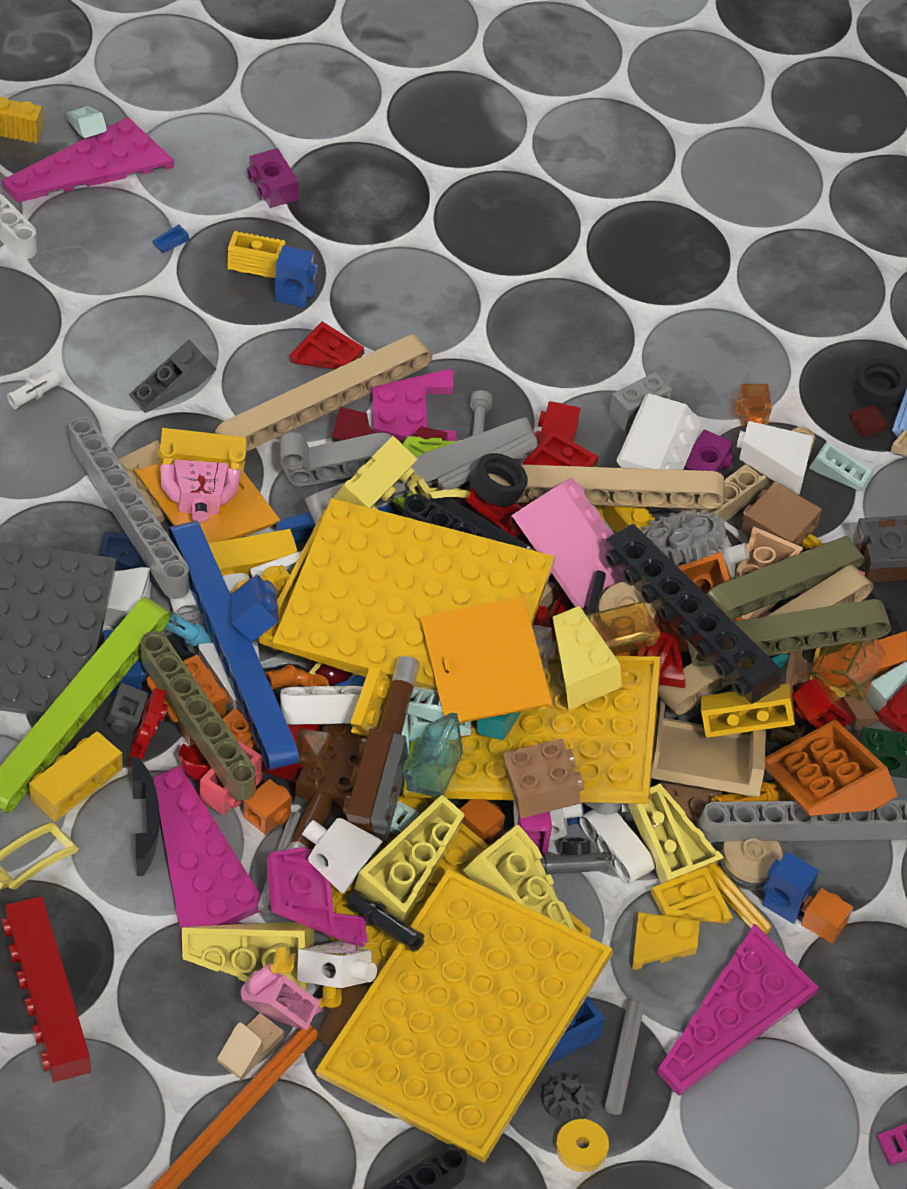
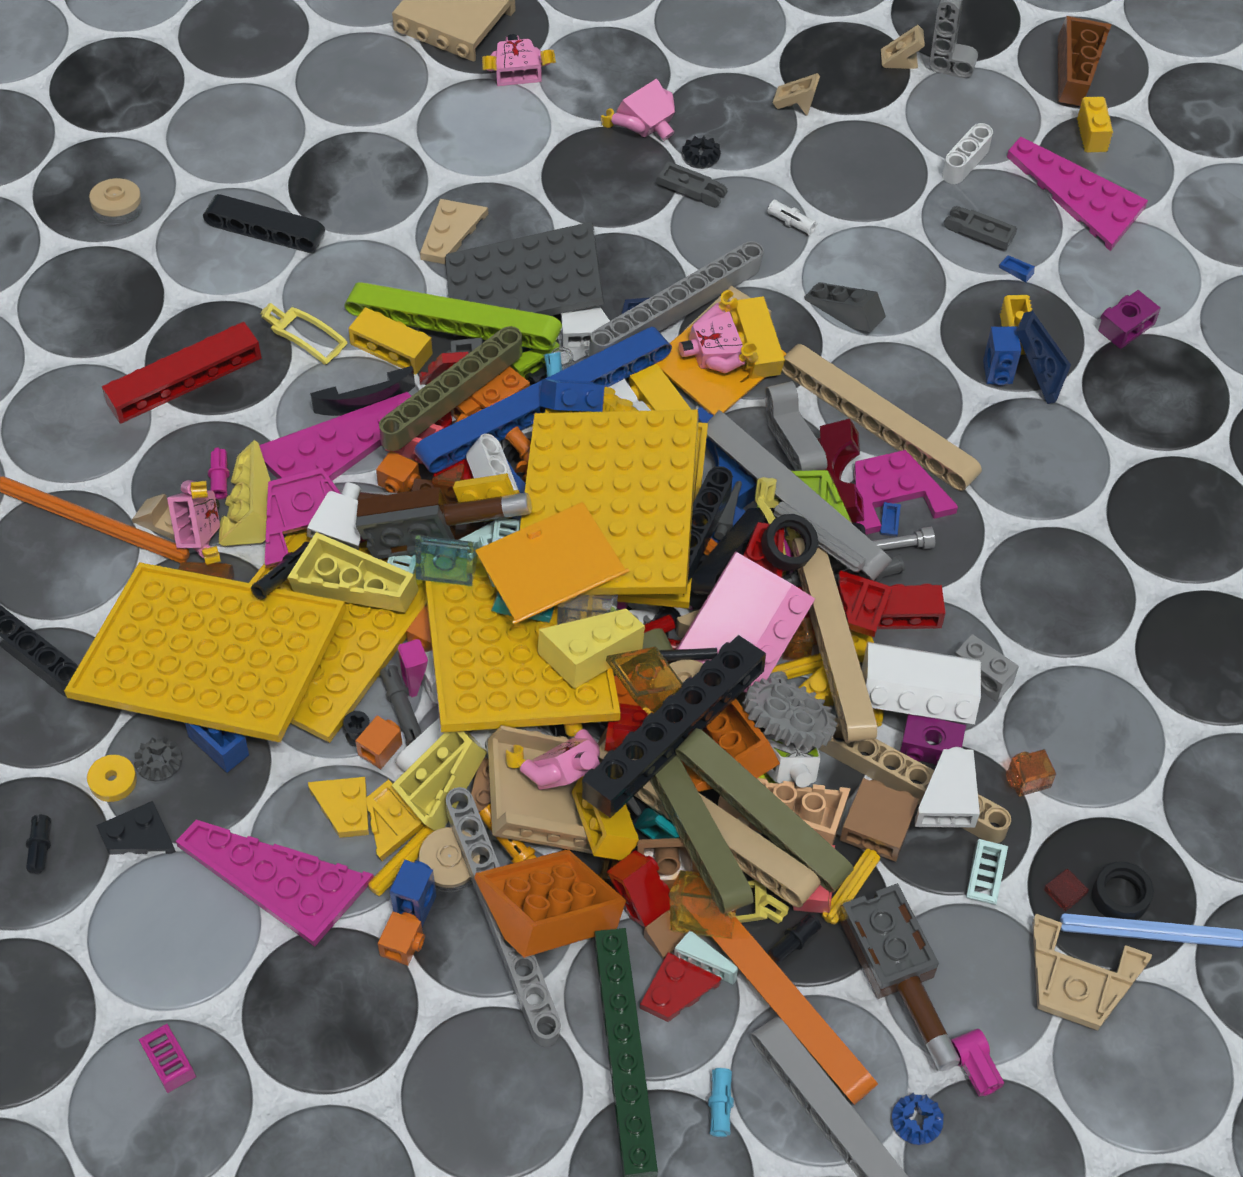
camera: 80 degrees right, 5 degrees up
(87, 121) = (1120, 171): light aqua slope -> none
(111, 247) = (980, 227): none -> dark grey hinge
(205, 978) = (219, 473): none -> dark pink axle
(295, 240) = (1043, 355): none -> dark blue wing
(326, 349) = (936, 405): red wing -> none
(350, 963) = (234, 547): white torso -> none
(379, 475) = (745, 445): light yellow wedge -> none
(442, 421) = (890, 519): none -> blue piece
(515, 871) = (349, 664): light yellow wedge -> none
(543, 778) = (438, 637): medium nougat brick -> none
(575, 846) = (422, 712): black tile -> none
(587, 903) = (354, 725): none -> black bush
(606, 887) = (379, 741): none -> orange brick
(624, 1057) = (208, 794): light grey axle -> none
(653, 1131) = (136, 832): none -> black wing
(694, 719) = (561, 764): none -> bright pink torso

